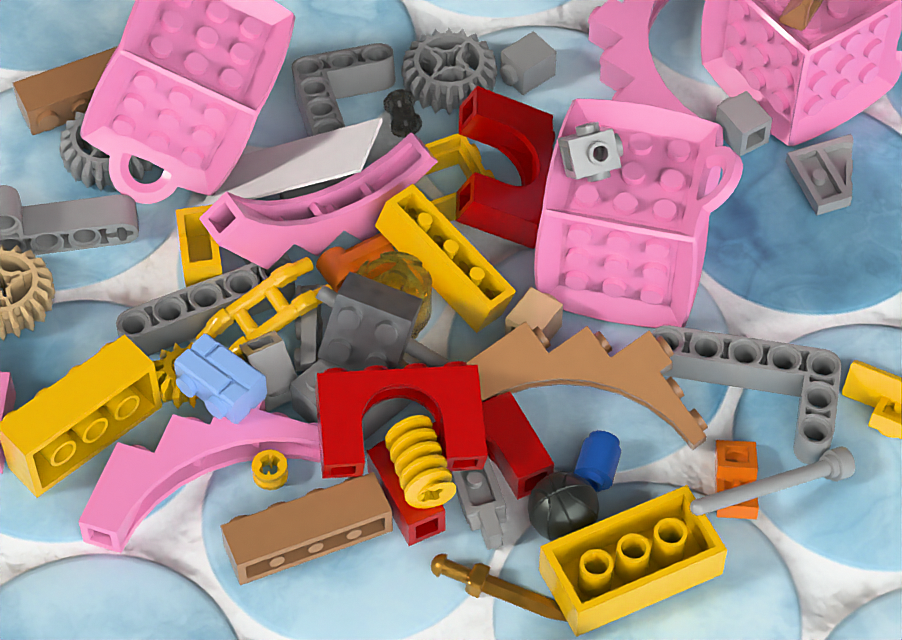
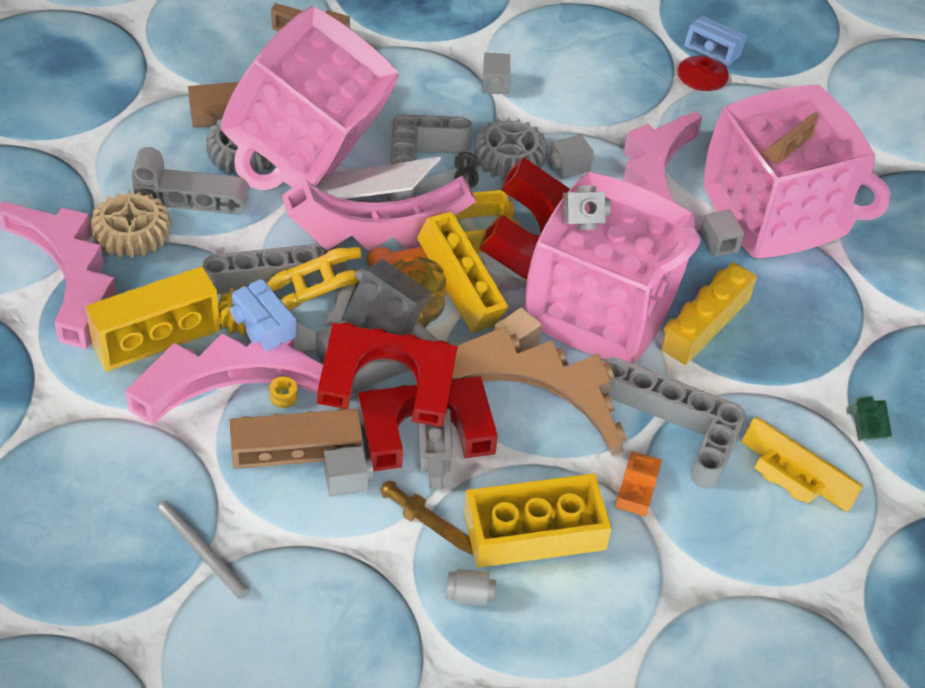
camera: 10 degrees right, 5 degrees down
(198, 248) = (280, 228): yellow brick -> none
(270, 358) = (307, 314): light grey brick -> none
(383, 553) = (347, 470): none -> light grey brick
(419, 462) = (392, 407): yellow piece -> none
(562, 505) = (494, 465): pearl dark grey piece -> none
(599, 459) = (533, 444): blue brick -> none
(757, 236) = (708, 313): none -> yellow brick
(824, 173) = (775, 281): light grey wing -> none
(833, 465) = (719, 490): light grey piece -> none

